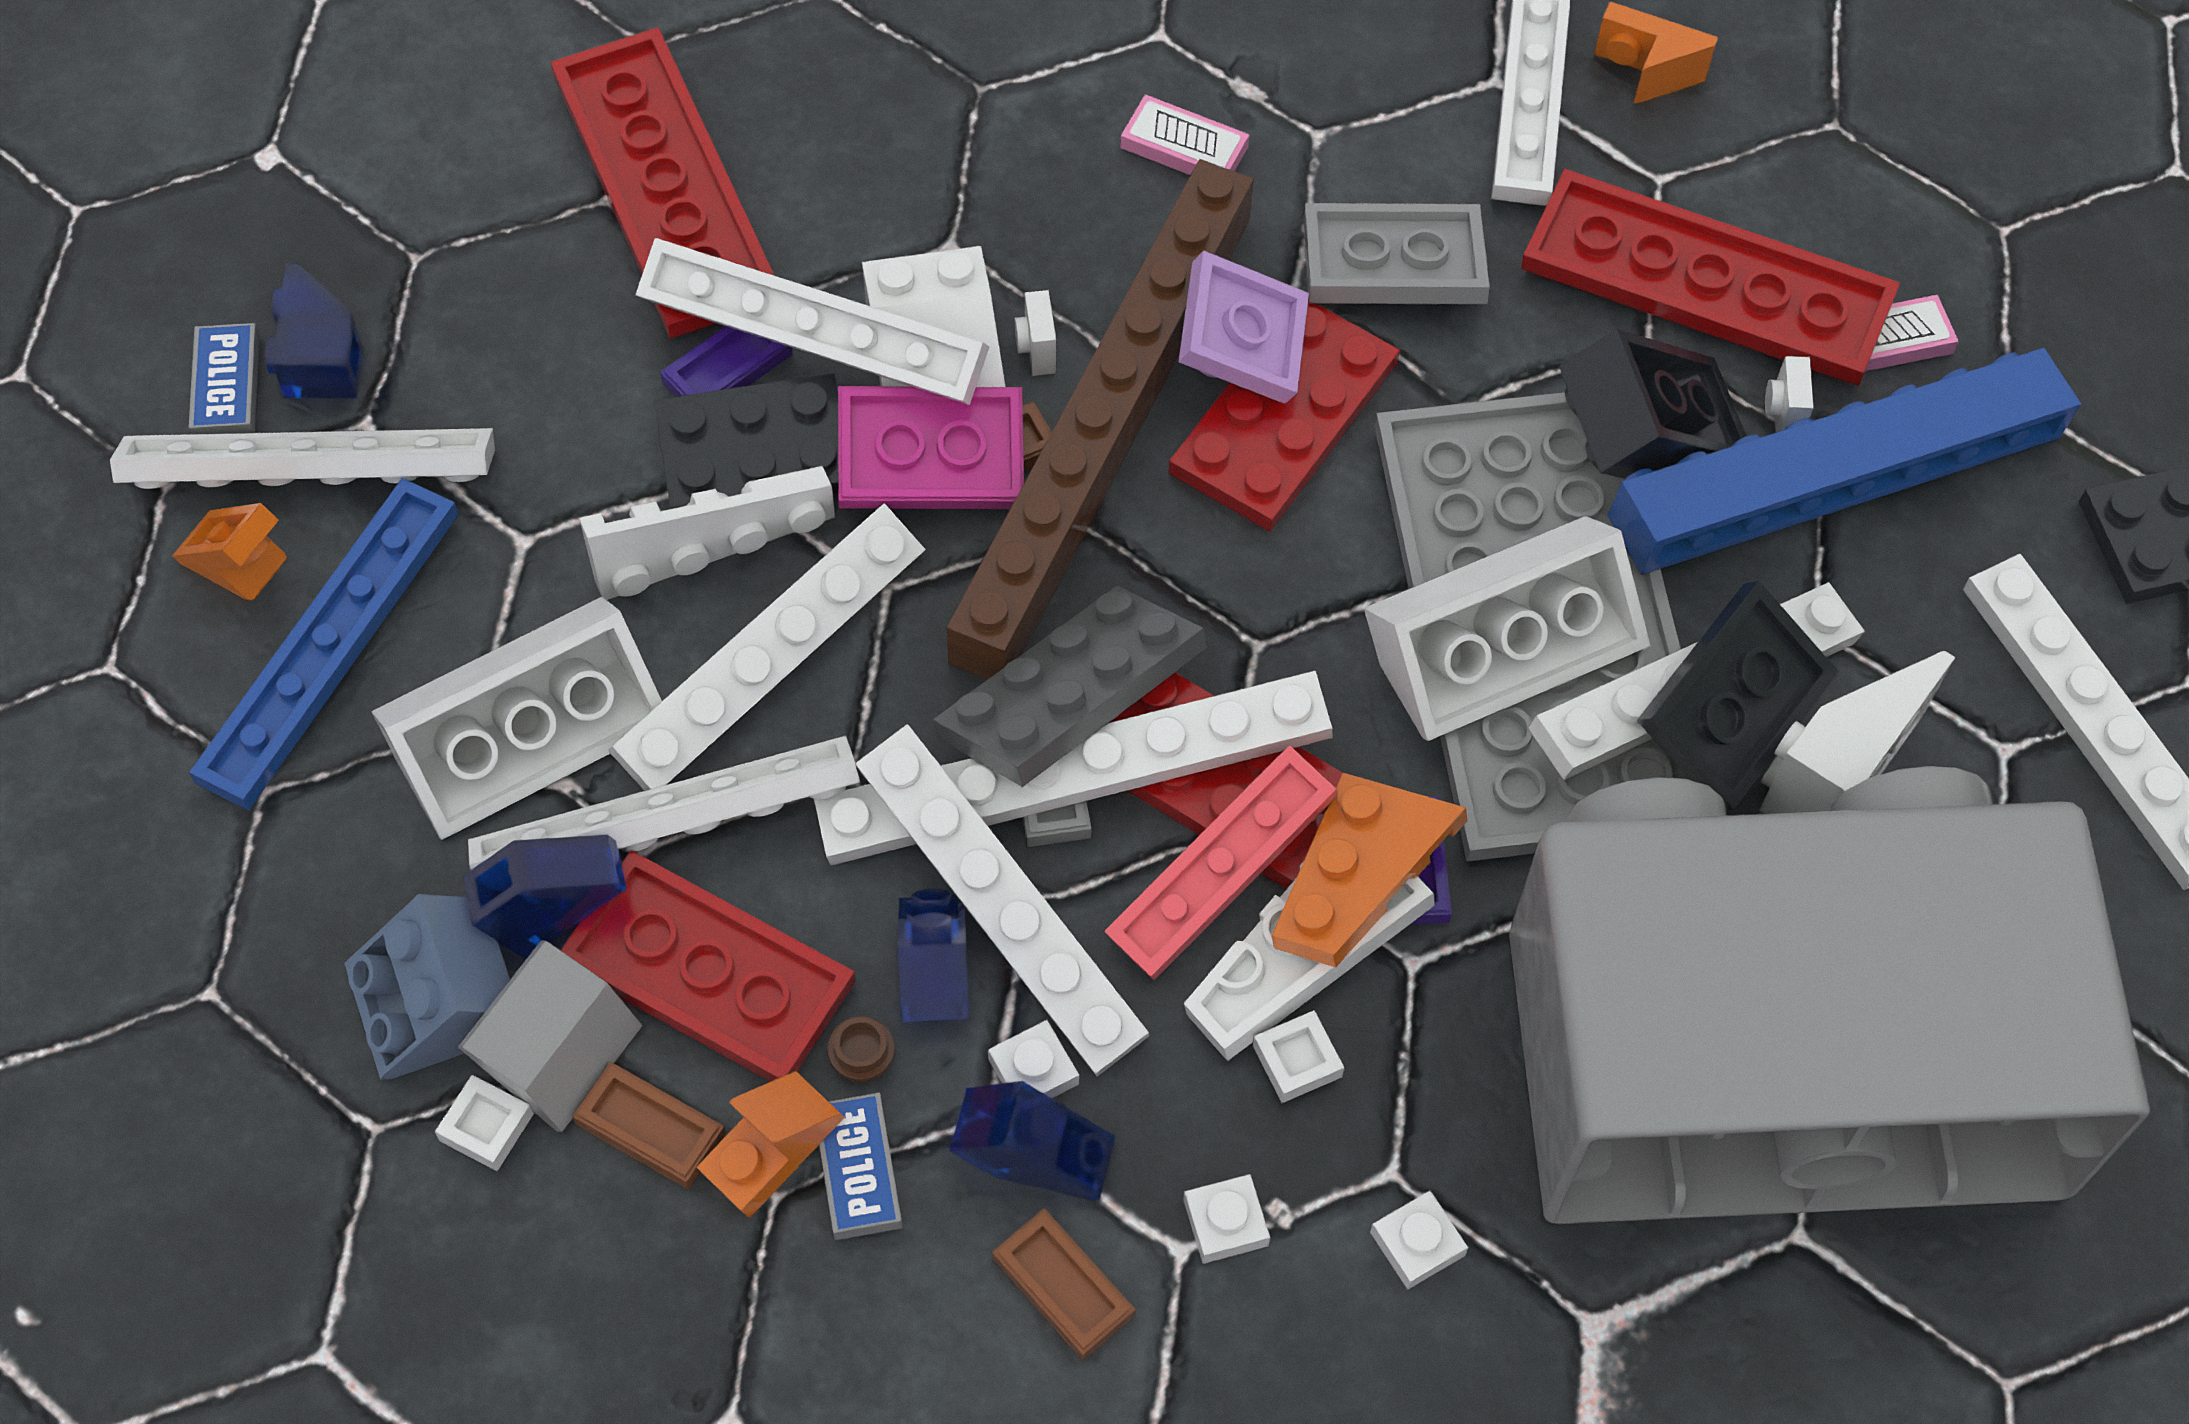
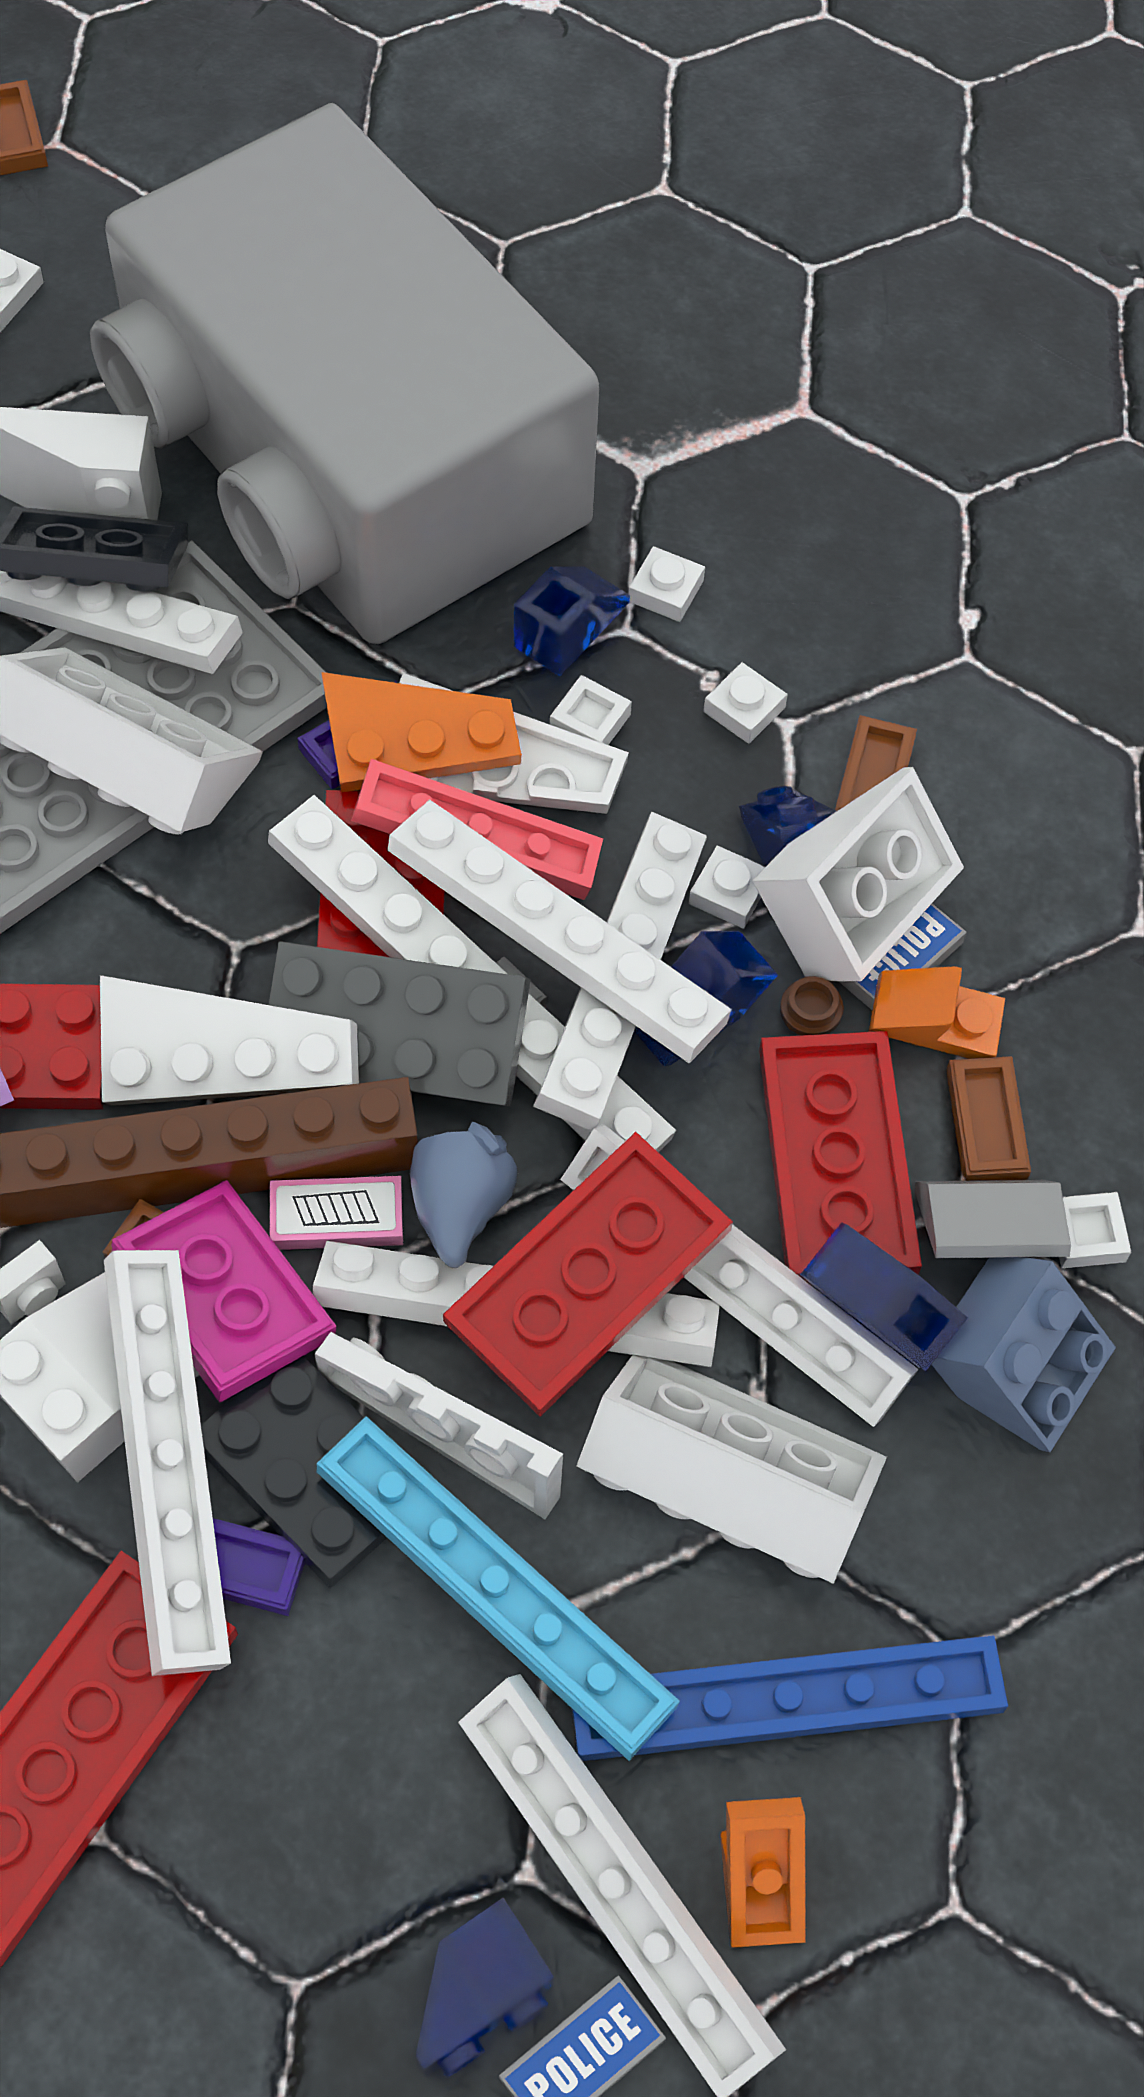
camera: 125 degrees left, 0 degrees up
(556, 487) = (498, 1588): none -> medium azure tile
(731, 675) = (587, 1273): none -> red plate
(884, 644) = (460, 1186): none -> sand blue hat
(929, 1133) = (859, 879): none -> white slope
(942, 575) = (336, 1210): none -> tile
(1052, 832) = (559, 930): none -> white plate
(1142, 547) = (206, 1046): none -> white wing
(1427, 1102) = (564, 615): none -> clear blue slope

